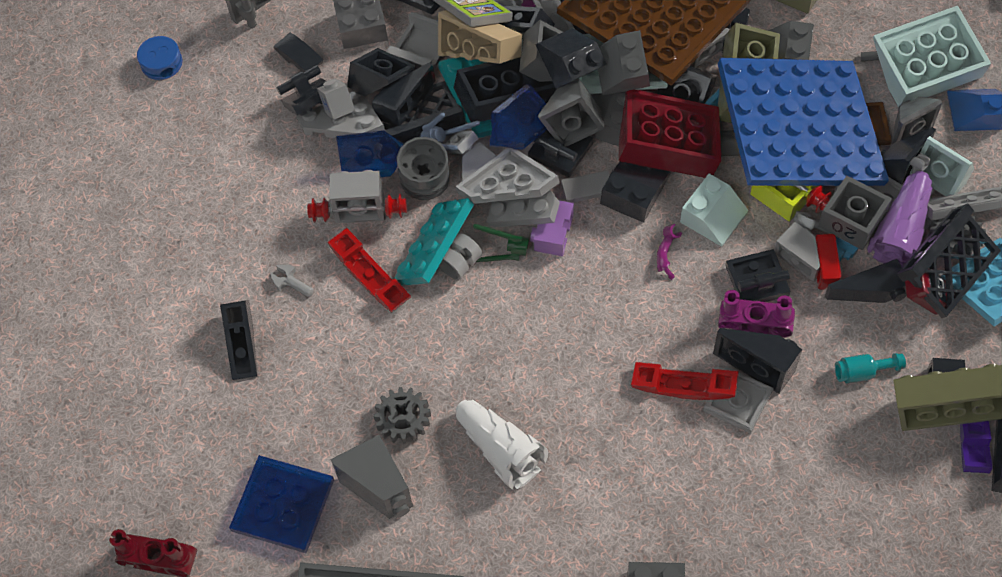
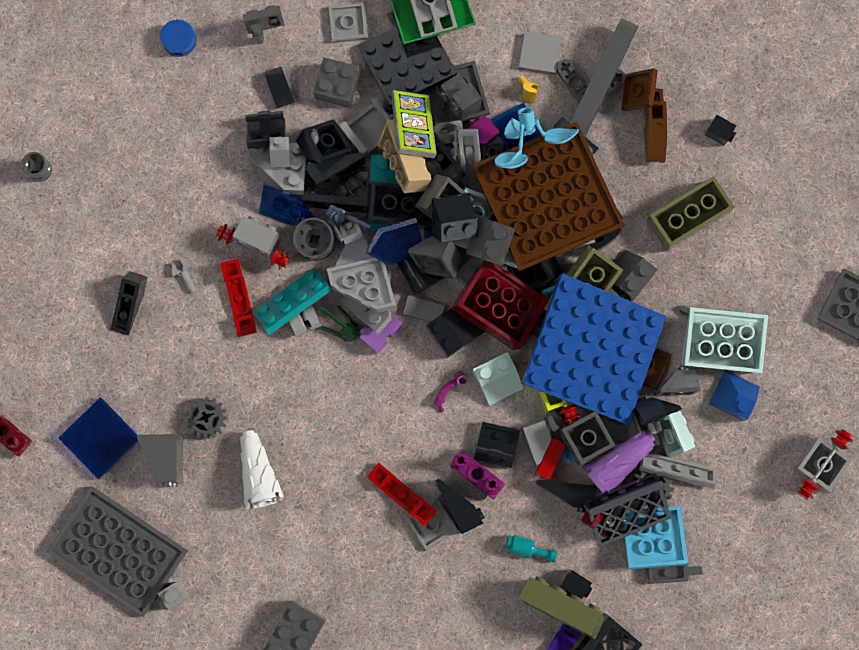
camera: 25 degrees right, 20 degrees up
(56, 248) = (36, 166): none -> dark grey wheel

